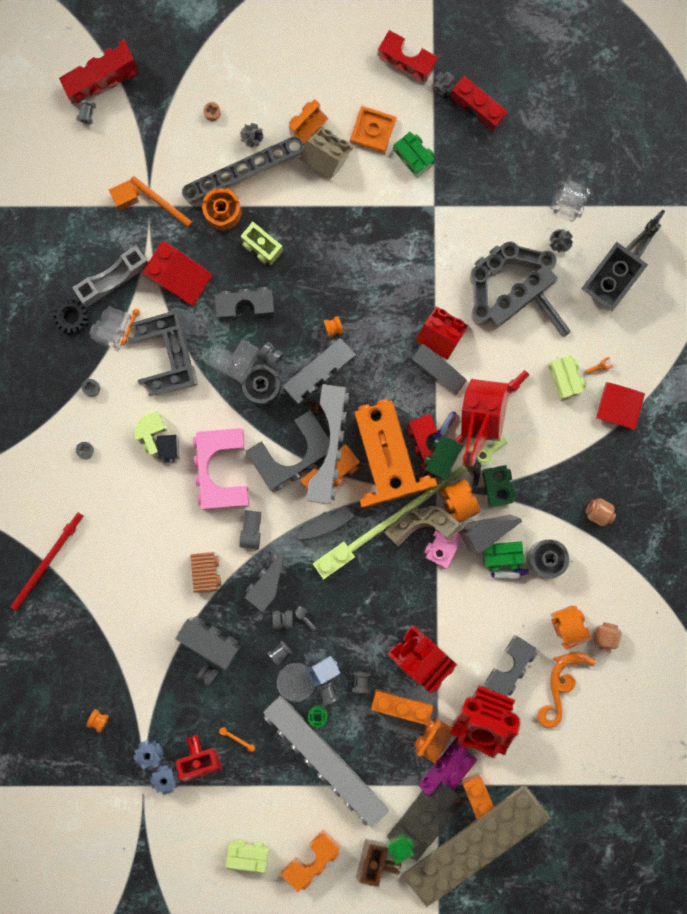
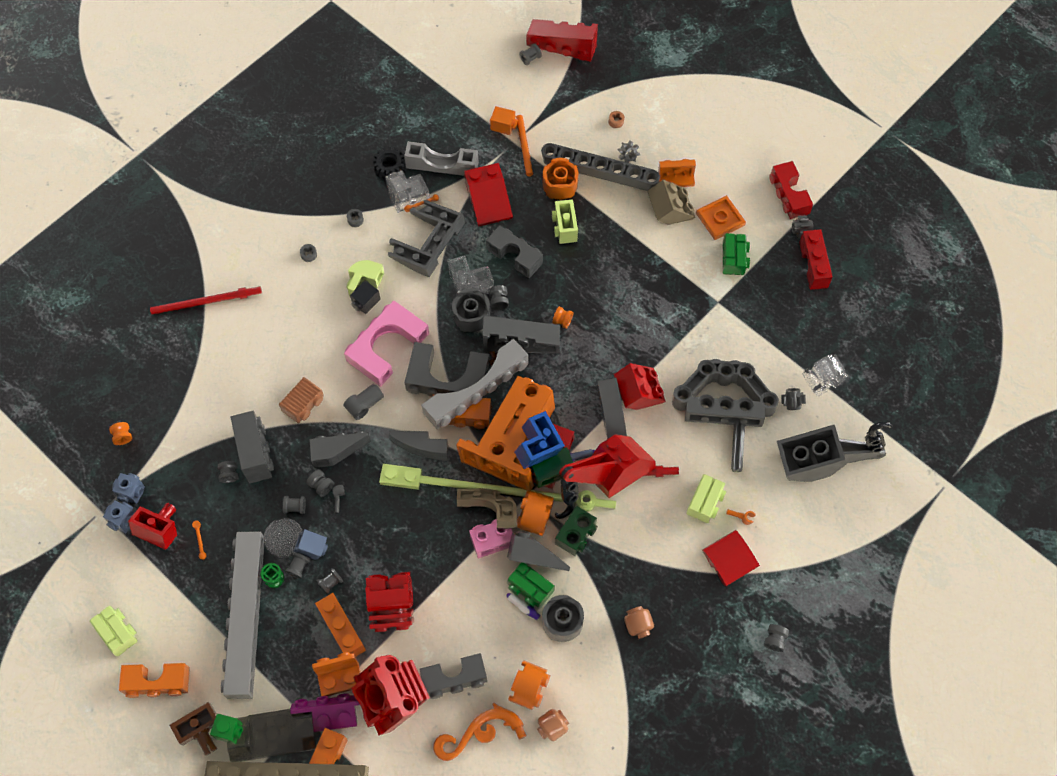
camera: 45 degrees right, 20 degrees down
(428, 451) = (542, 441): none -> blue brick

